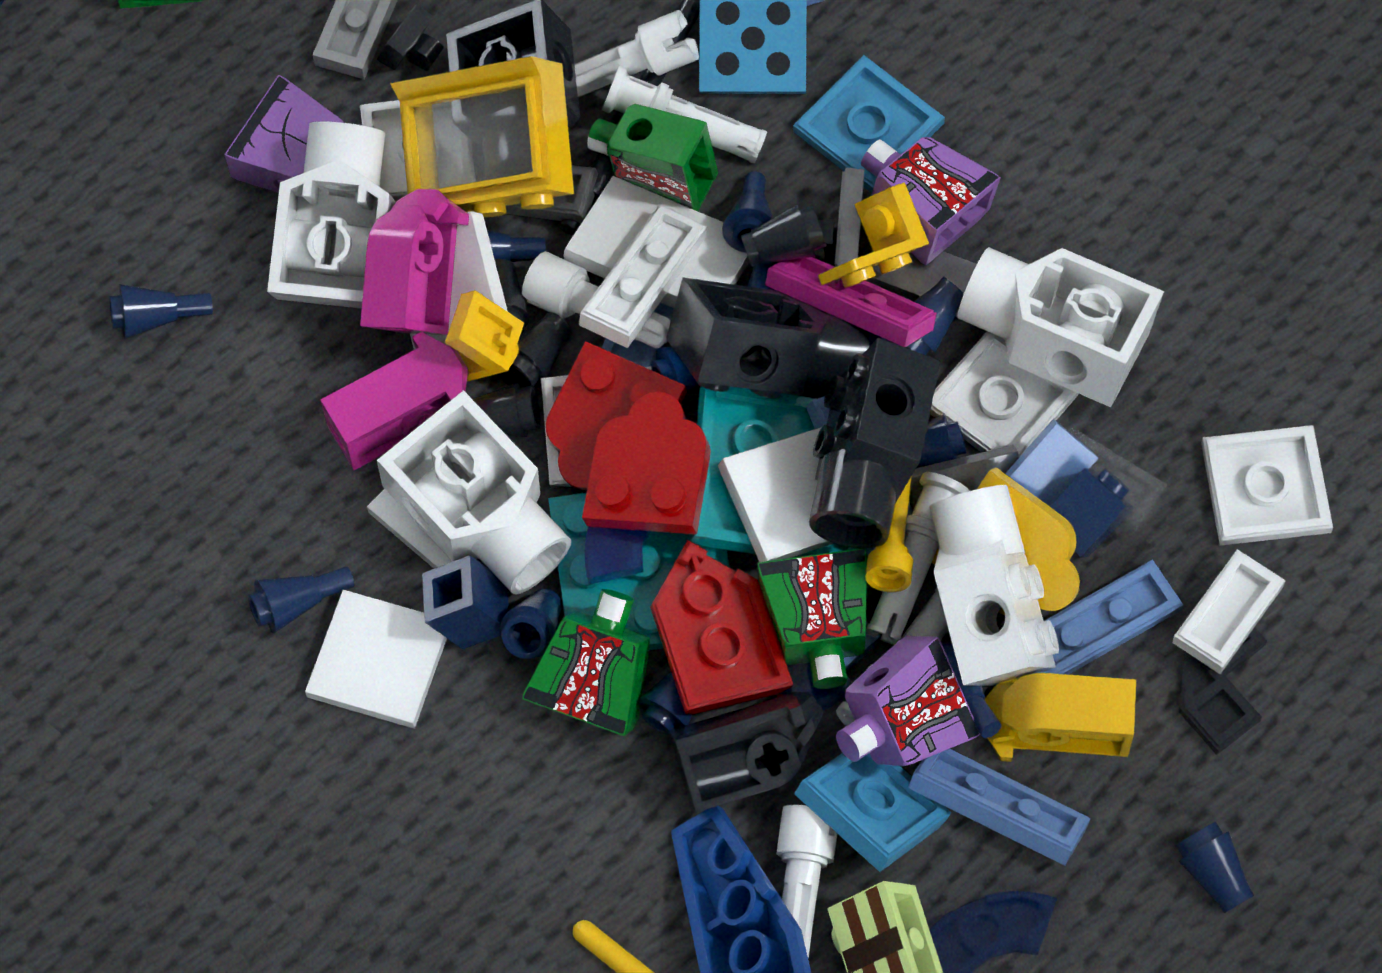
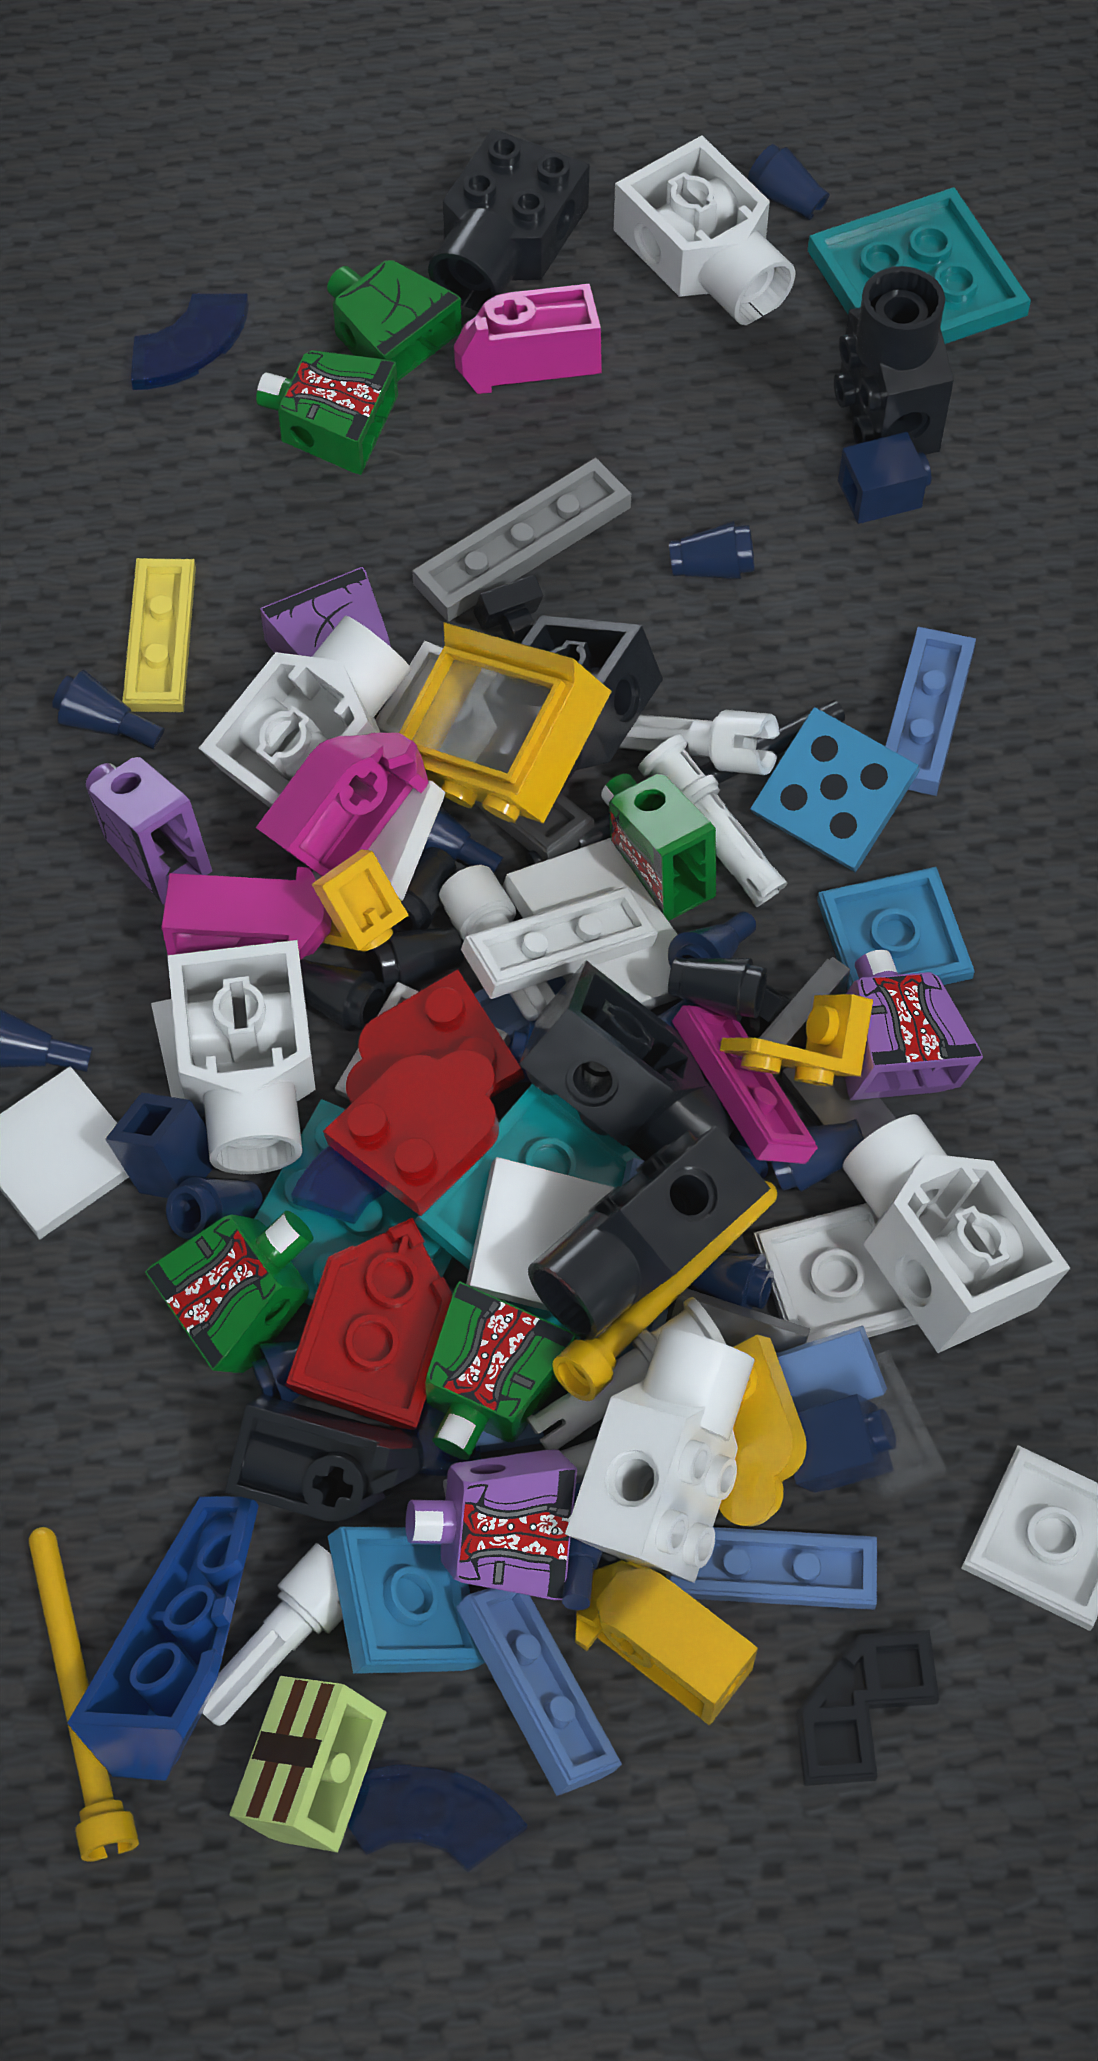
camera: 30 degrees right, 5 degrees down
(148, 221) = (159, 635): none -> light yellow tile
(257, 370) = (133, 804): none -> medium lavender torso
(1215, 866) = (715, 1904): dark blue cone -> none
(1228, 611) = (916, 1642): white tile -> none

